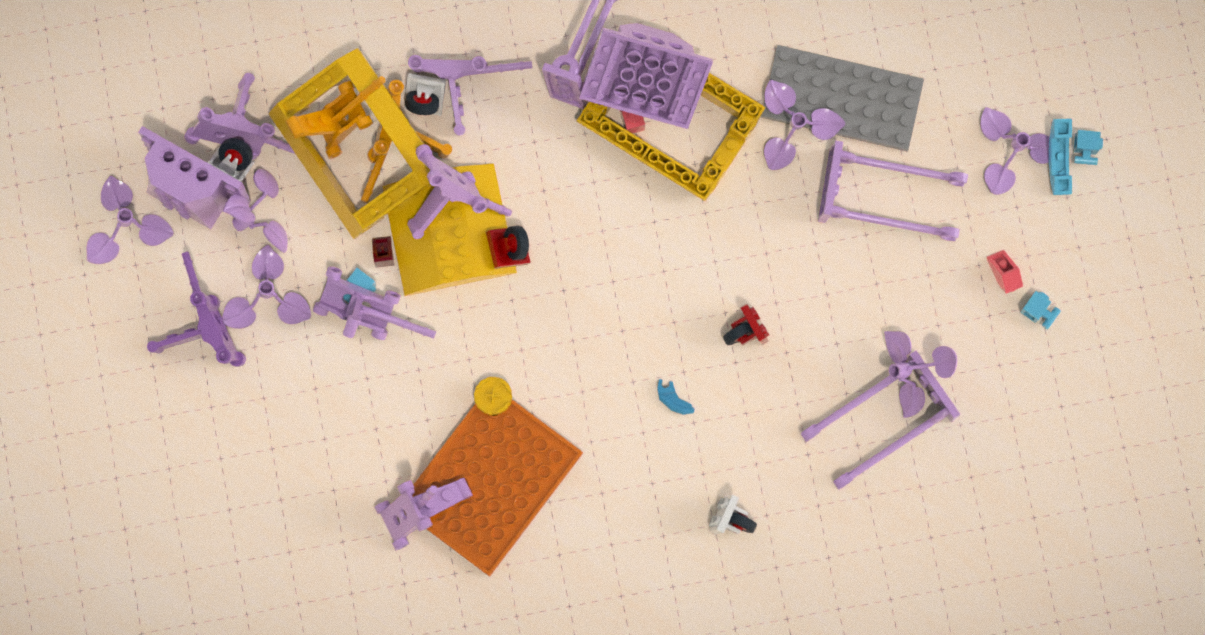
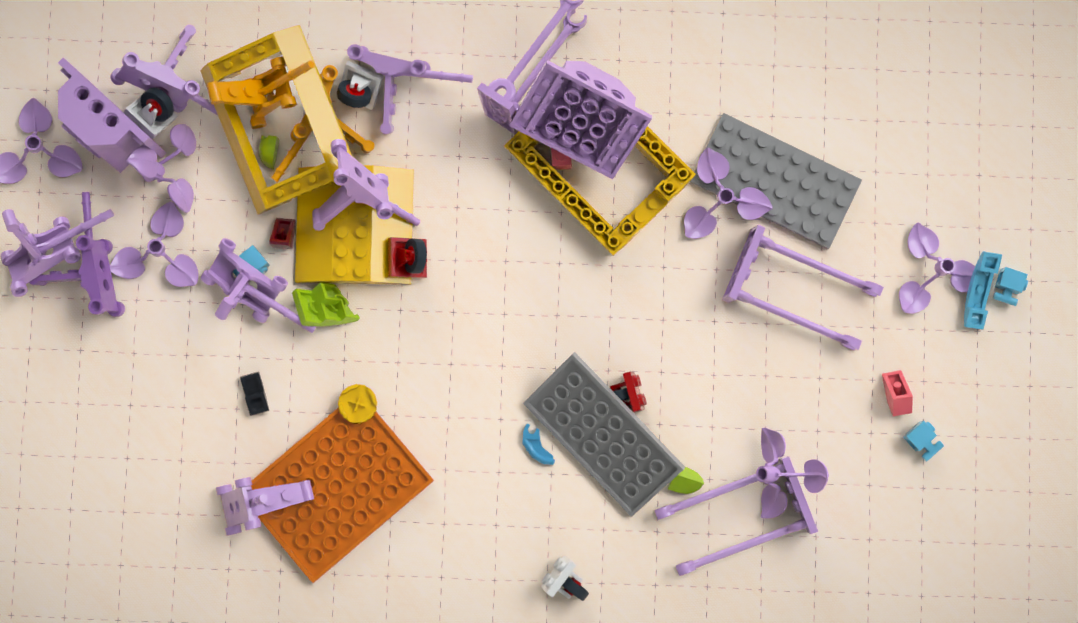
camera: 15 degrees right, 5 degrees up
(149, 313) = (34, 248): none -> lavender piece
(349, 176) = (268, 150): none -> lime brick
(390, 409) = (254, 393): none -> black slope
(438, 311) = (323, 306): none -> lime slope
(735, 371) = (603, 434): none -> light grey plate
(823, 399) = (686, 482): none -> lime brick

